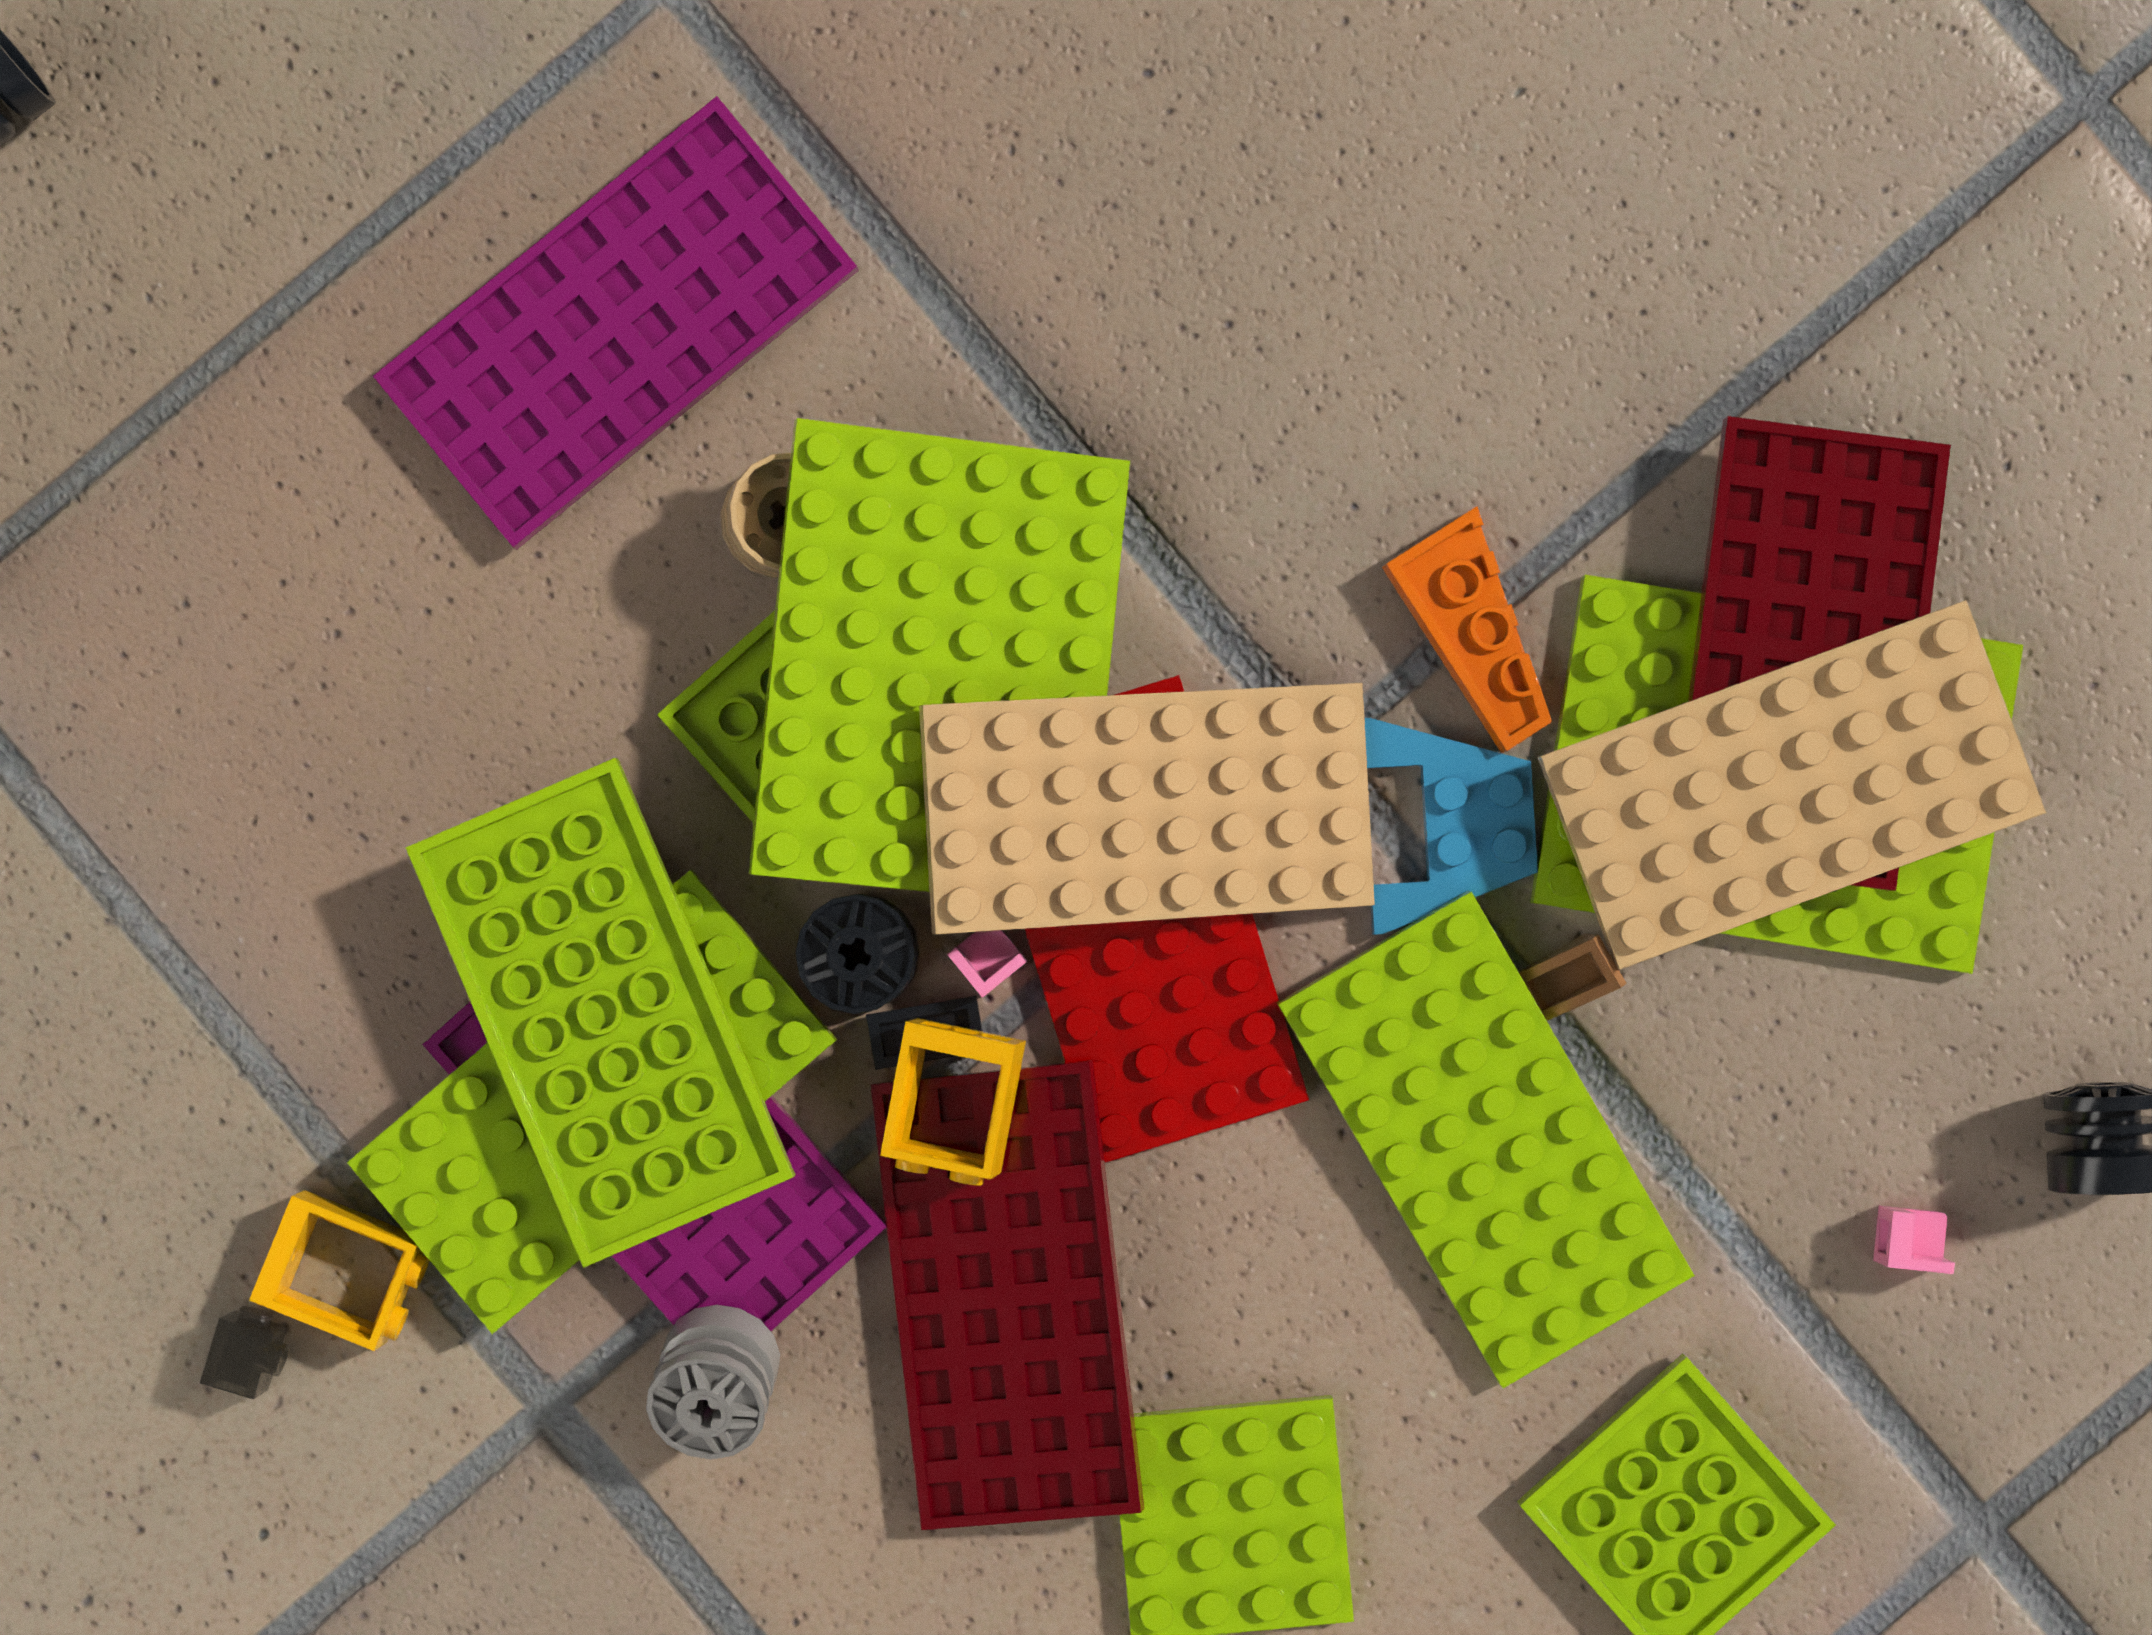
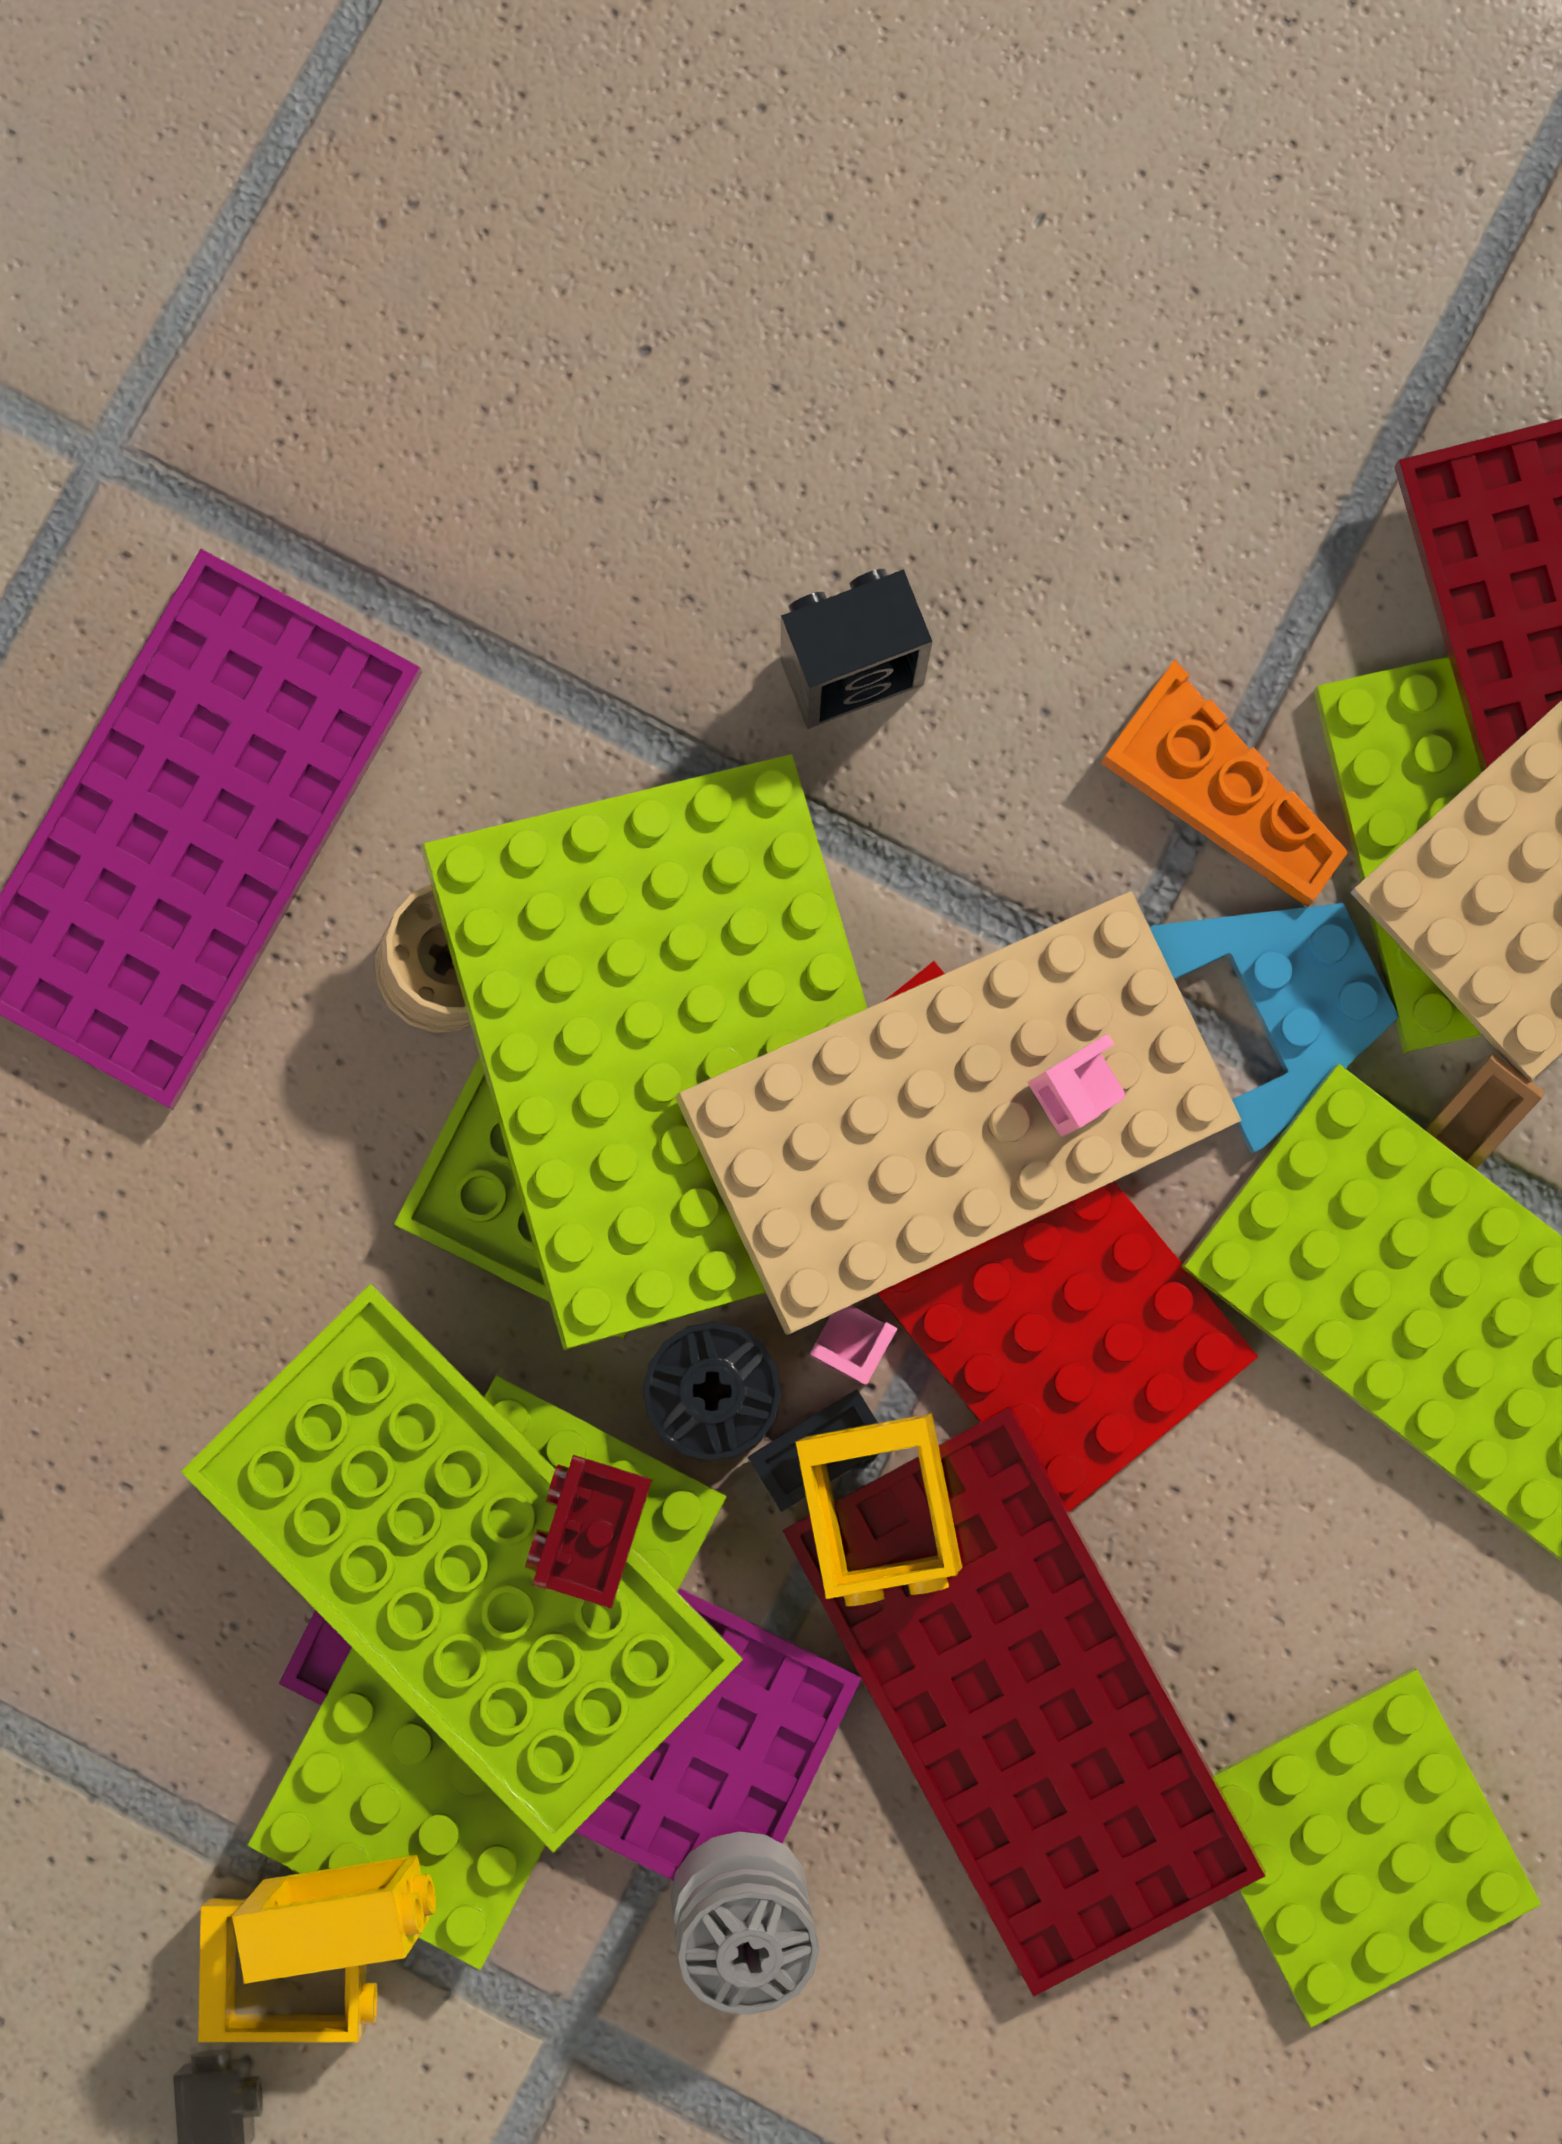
camera: 25 degrees left, 5 degrees down
(388, 1250) = (333, 1918): none -> yellow window
(710, 1027) = (589, 1530): none -> dark red bracket
(1215, 393) = (854, 646): none -> black brick
(1249, 828) = (1078, 1088): none -> bright pink panel

